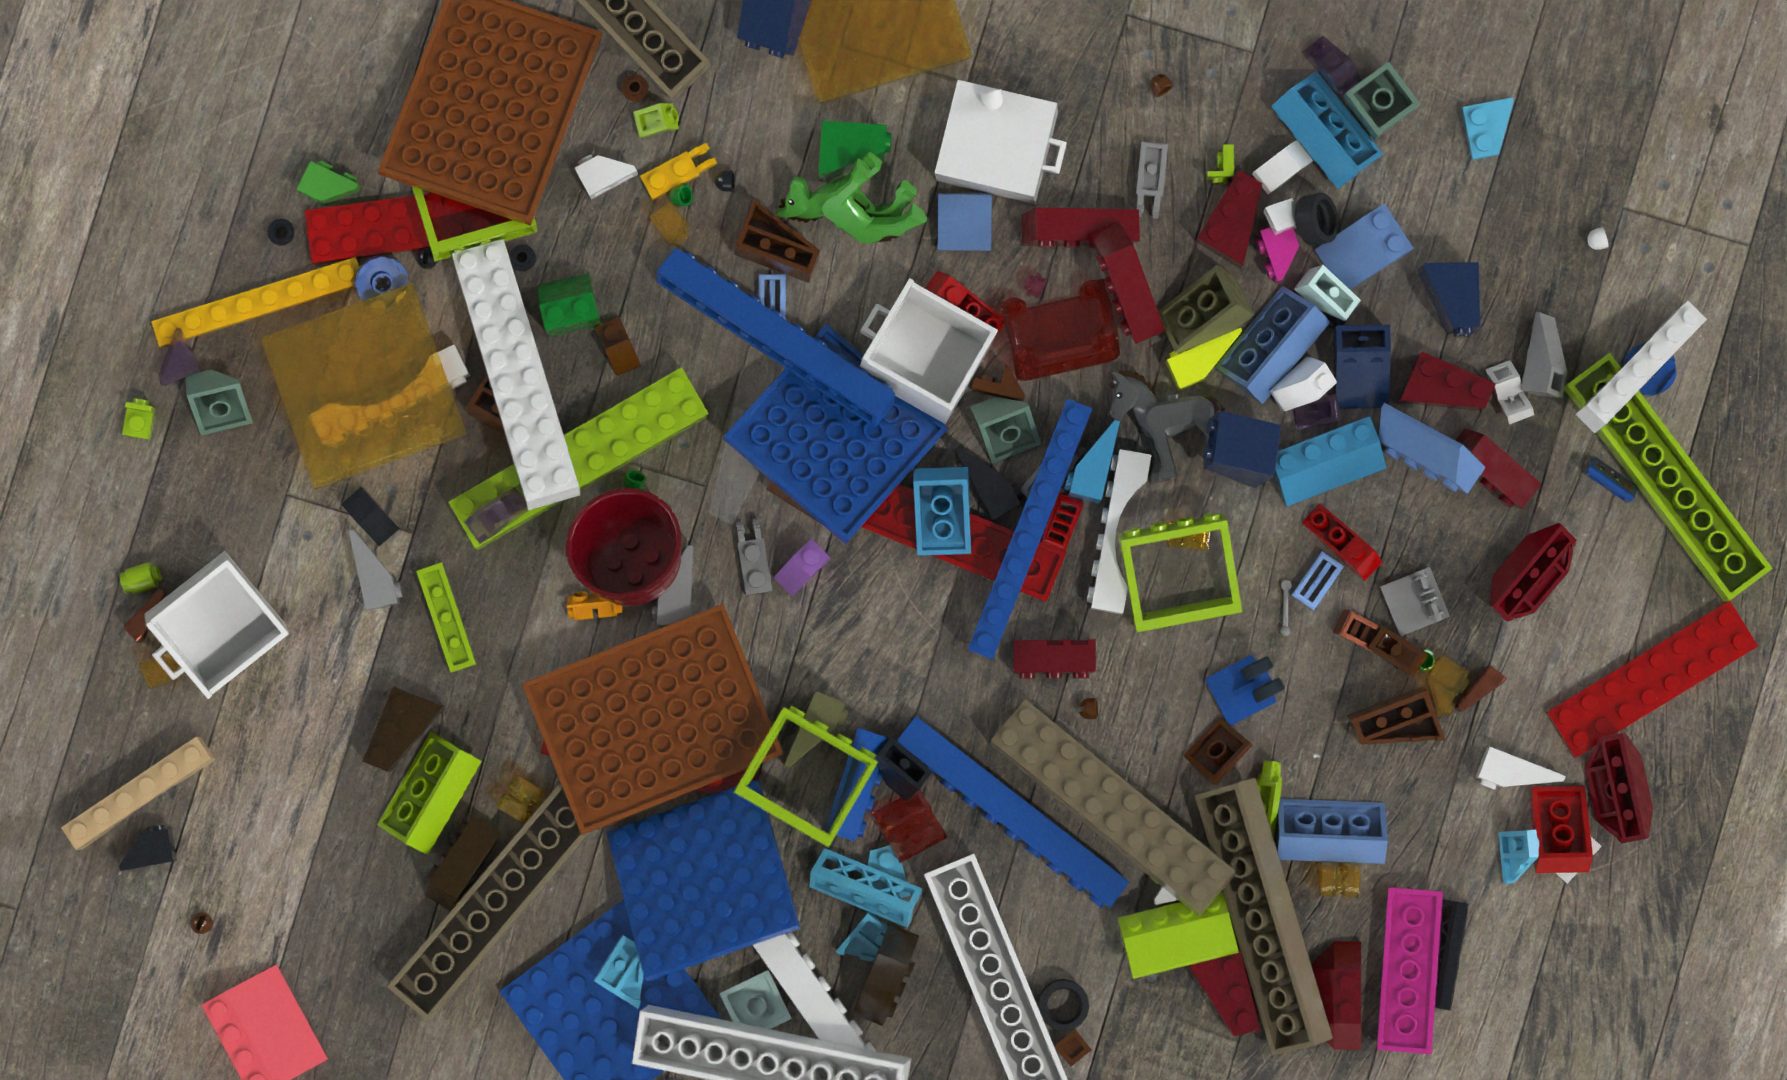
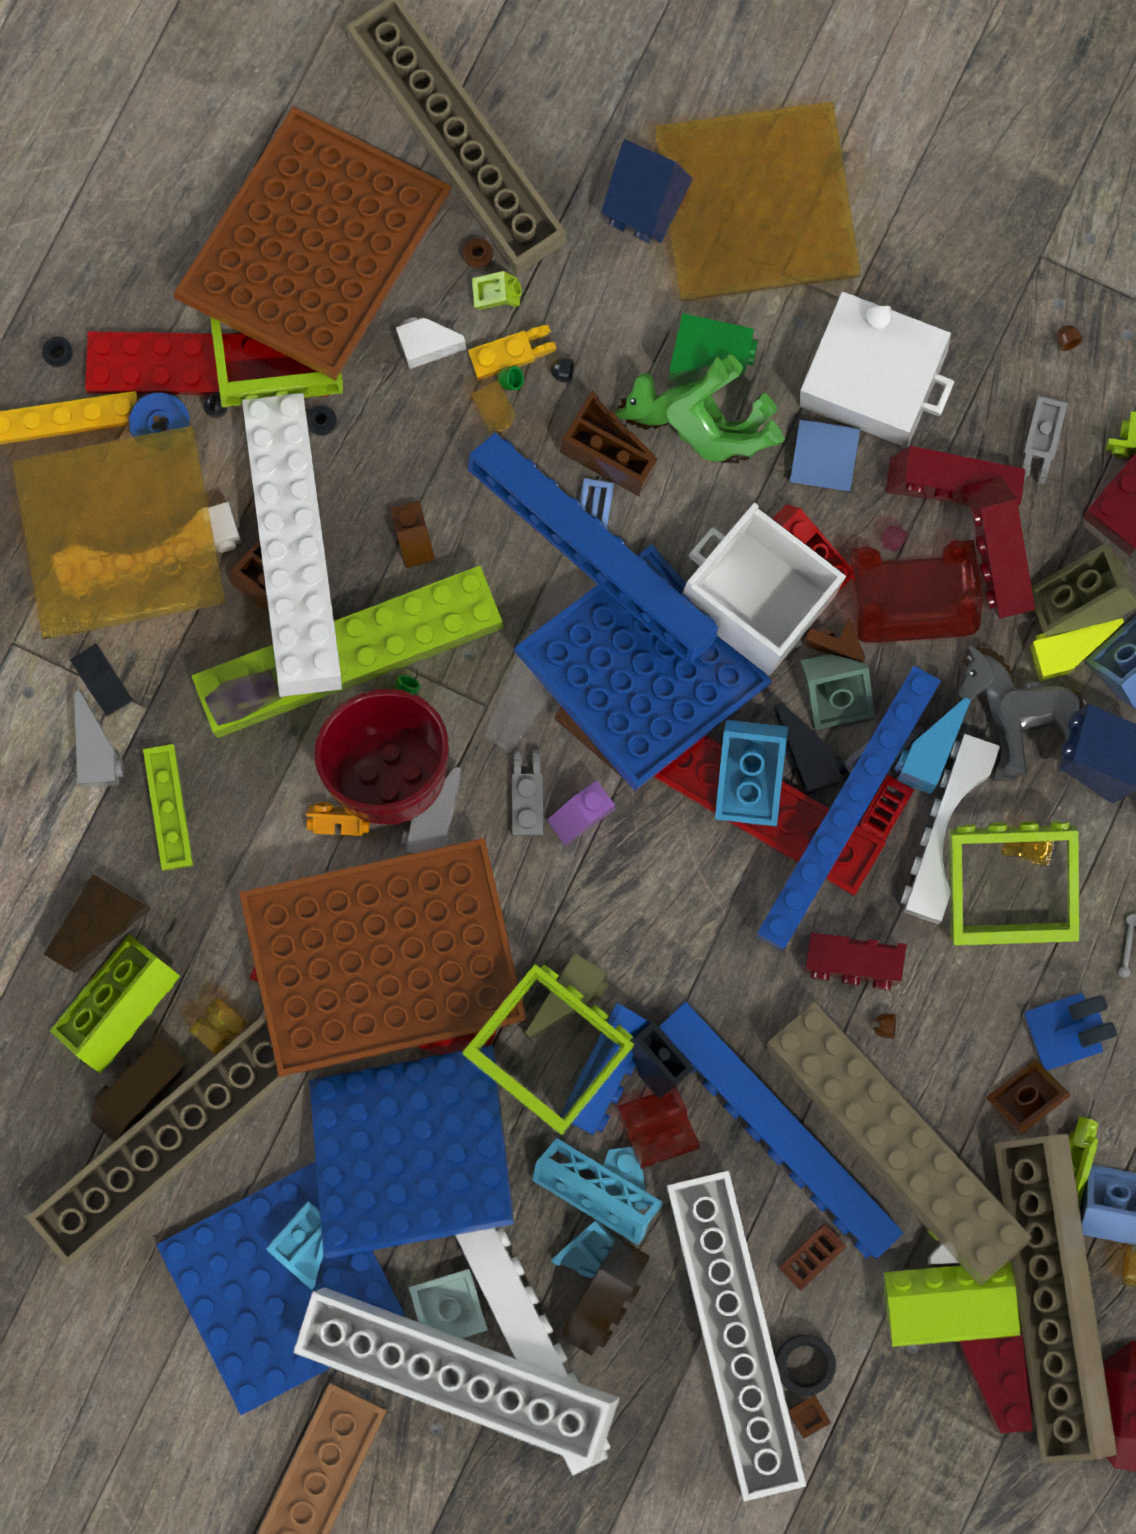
camera: 15 degrees right, 5 degrees down
(325, 185) = (115, 307): bright green slope -> none
(568, 305) = (364, 481): green slope -> none
(1063, 920) = (820, 1265): none -> copper slope

